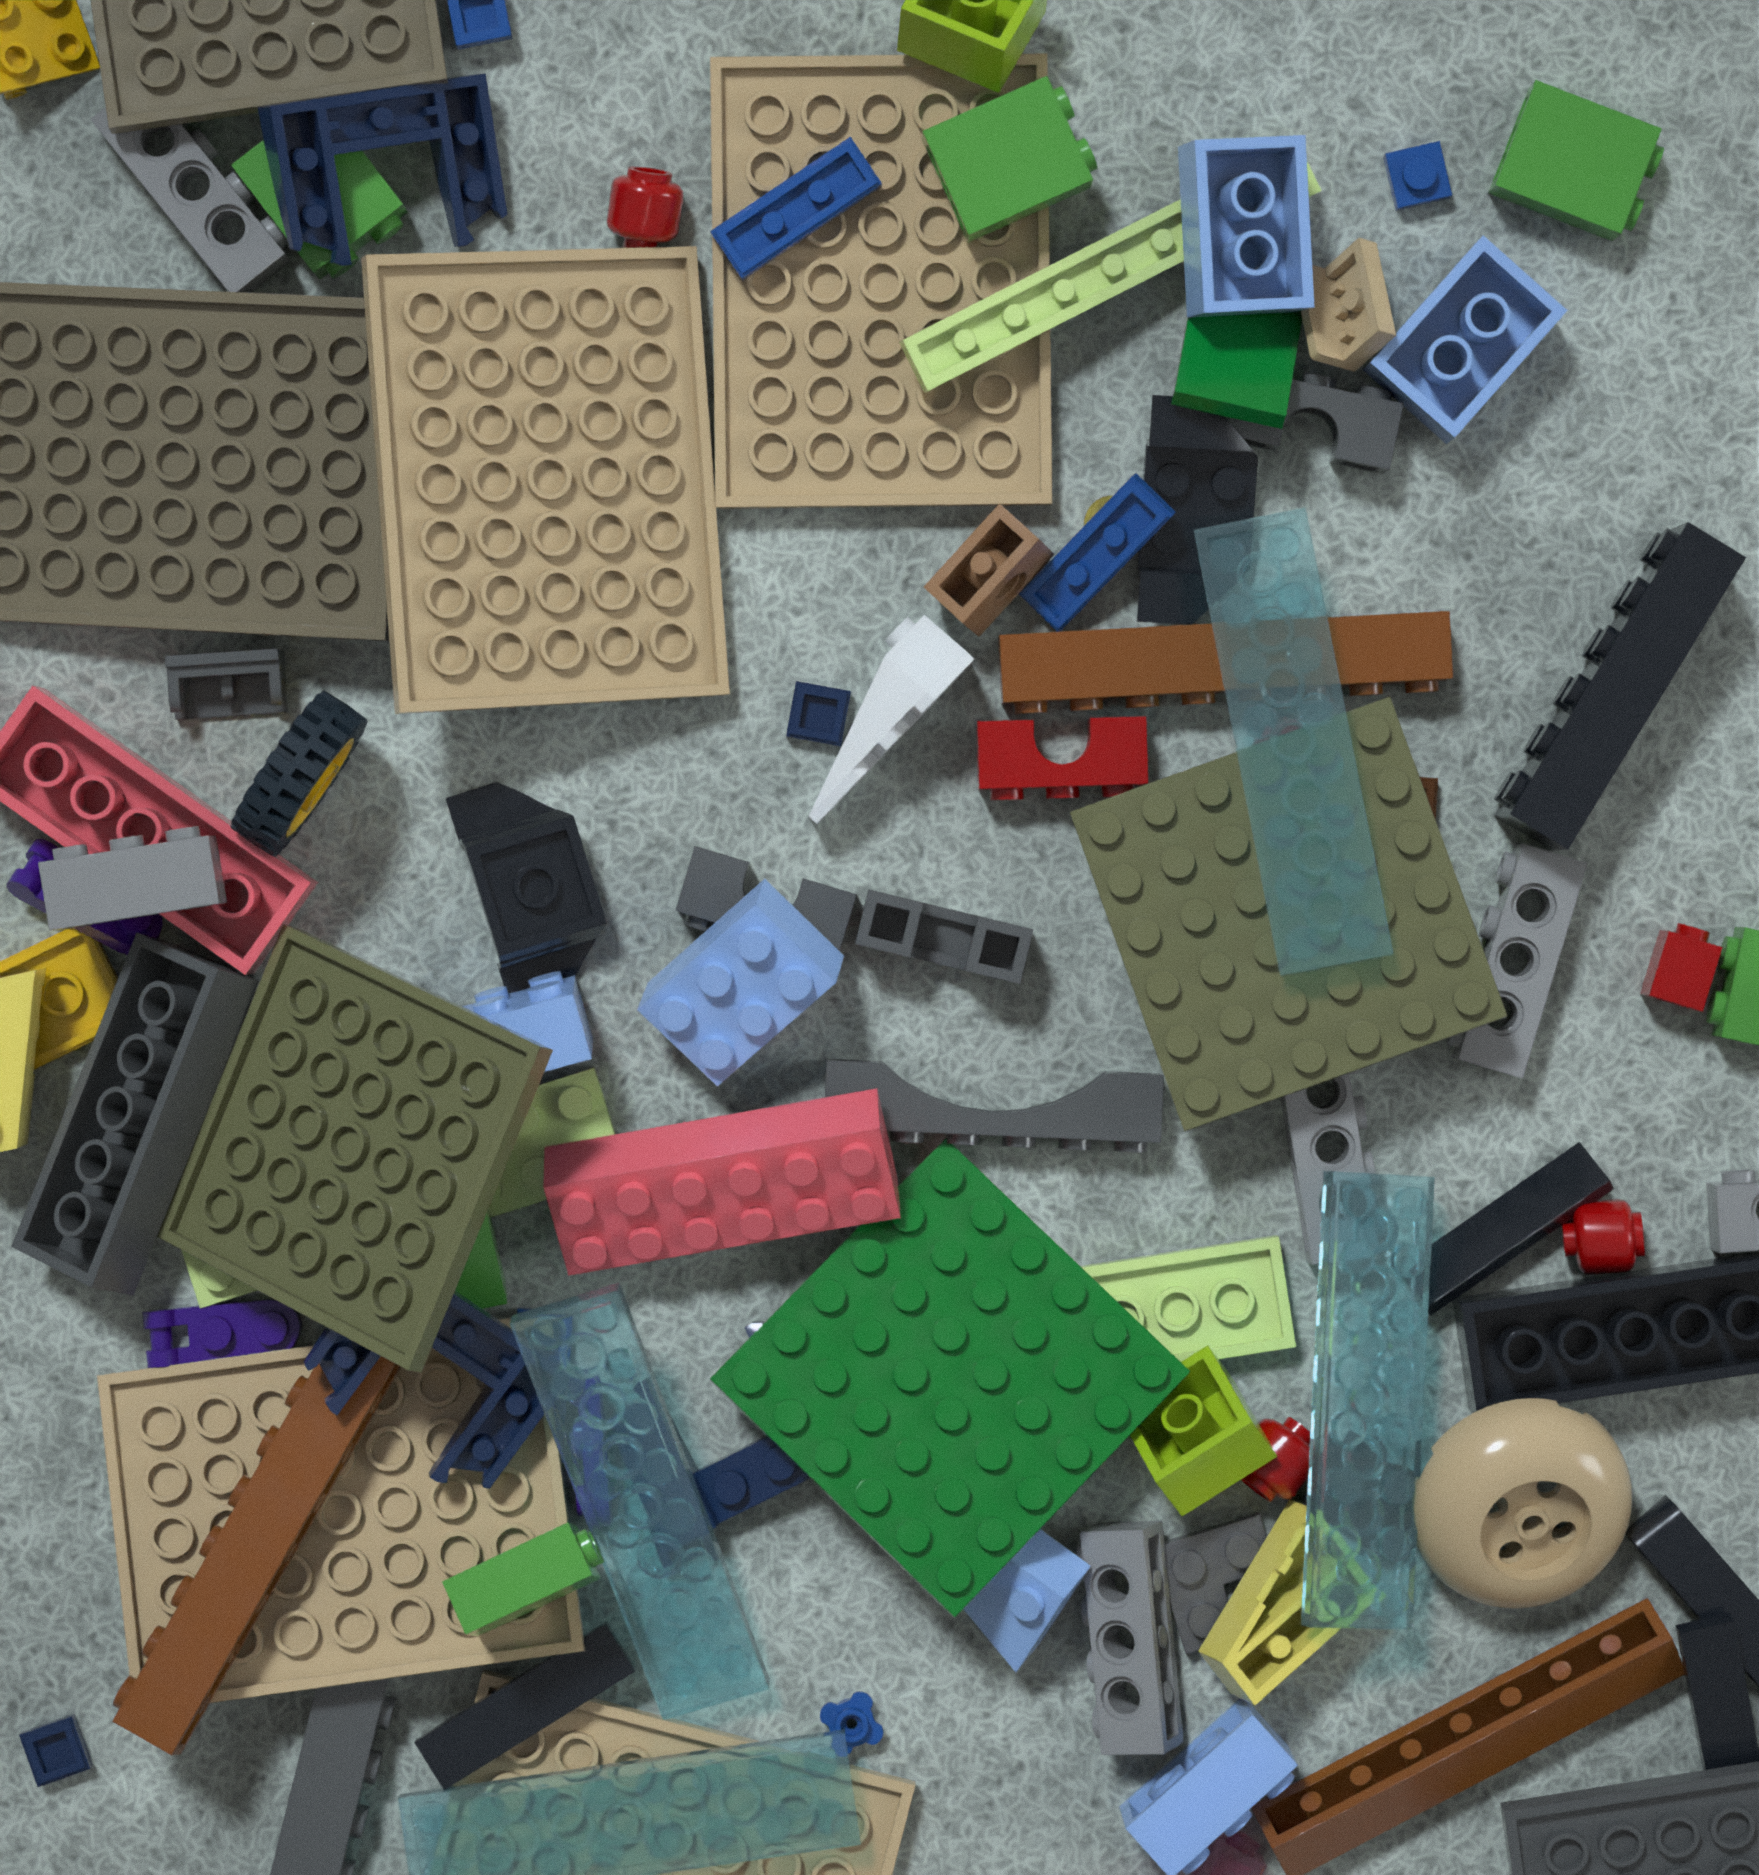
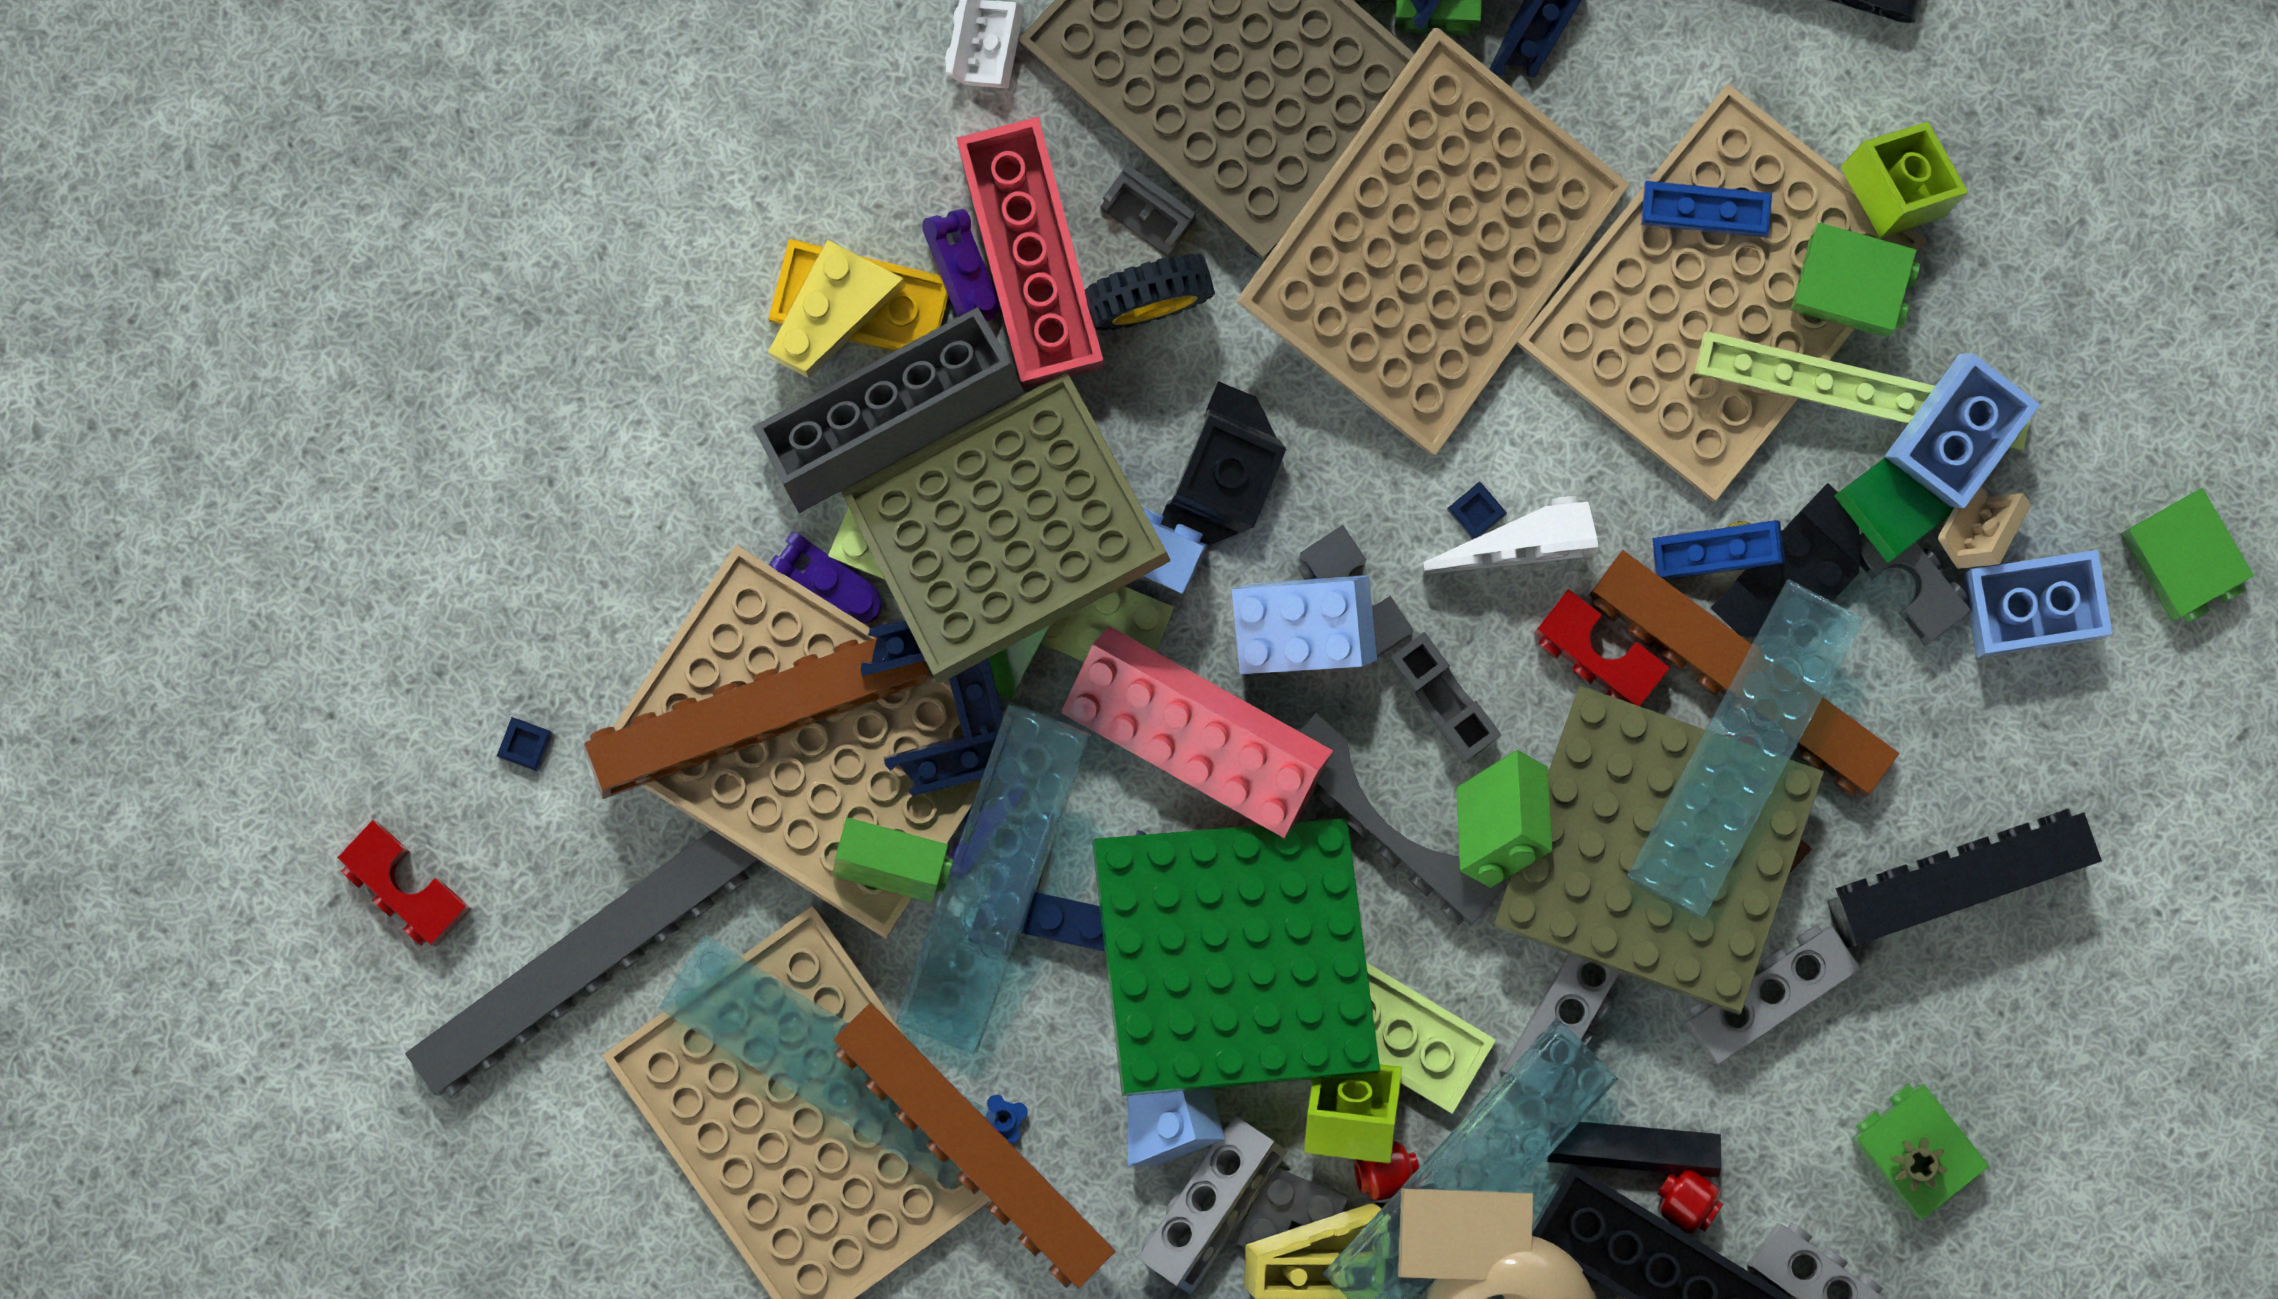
camera: 35 degrees right, 5 degrees down
(132, 879) = (1003, 272): light grey brick -> none
(524, 1706) = (822, 944): black tile -> none
(645, 207) = (1618, 137): red head -> none
(846, 1788) = (974, 1146): none -> dark orange brick
(989, 570) = (1647, 508): medium nougat brick -> none
(1106, 1014) = (1504, 819): none -> bright green brick
(1406, 1470) = (1461, 1231): none -> tan tile
(1417, 175) = (2086, 489): blue plate -> none
(1682, 967) = (1866, 1080): red brick -> none

